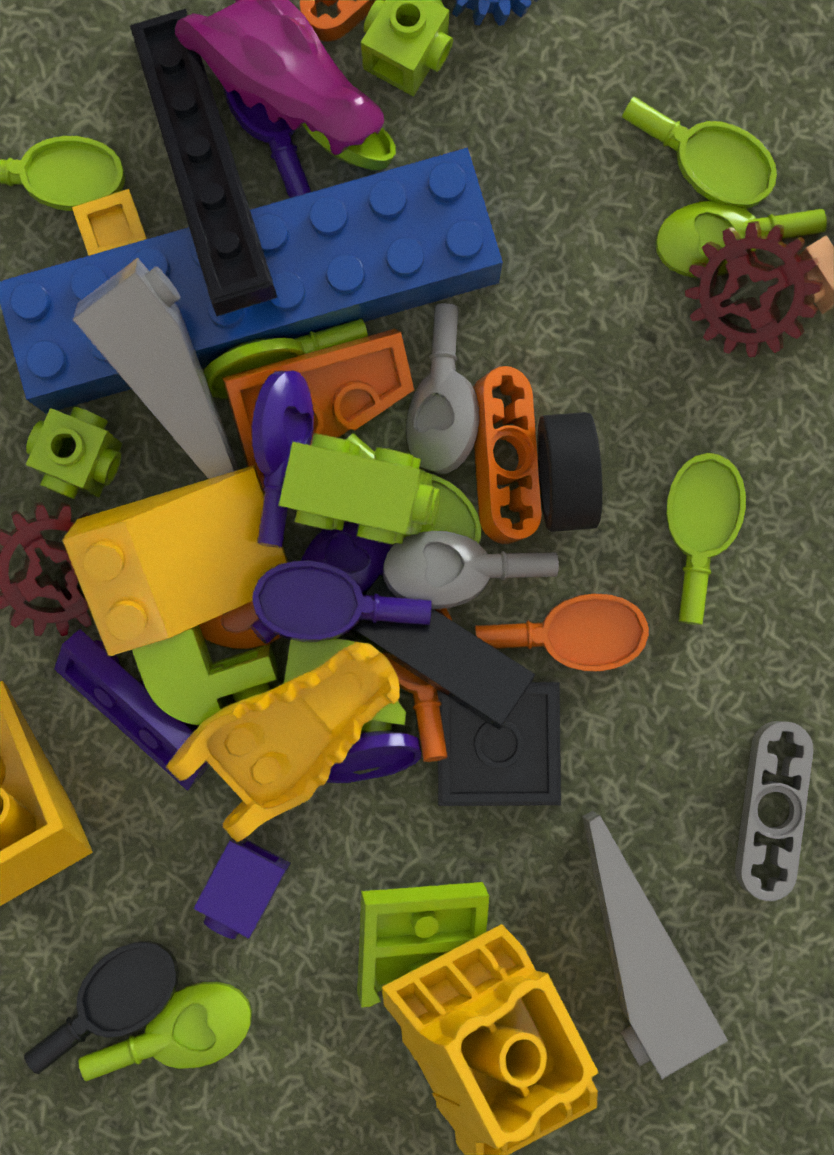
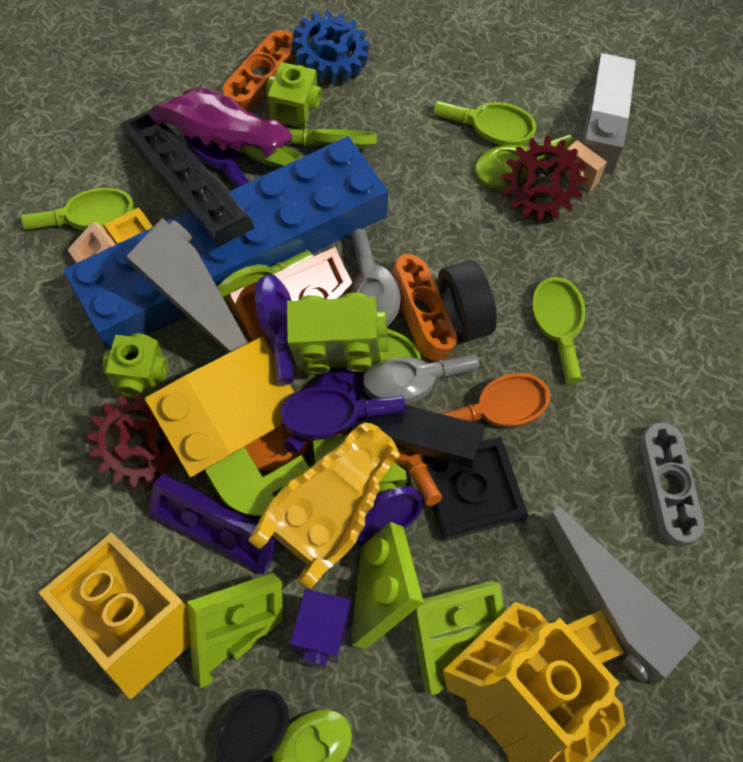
camera: 20 degrees left, 20 degrees down
(50, 239) = (91, 242): none -> light nougat plate
(130, 851) = (231, 622): none -> lime wing
(339, 854) = (385, 586): none -> lime wing
(451, 127) = (325, 137): none -> lime piece
(589, 993) = (597, 636): none -> yellow plate

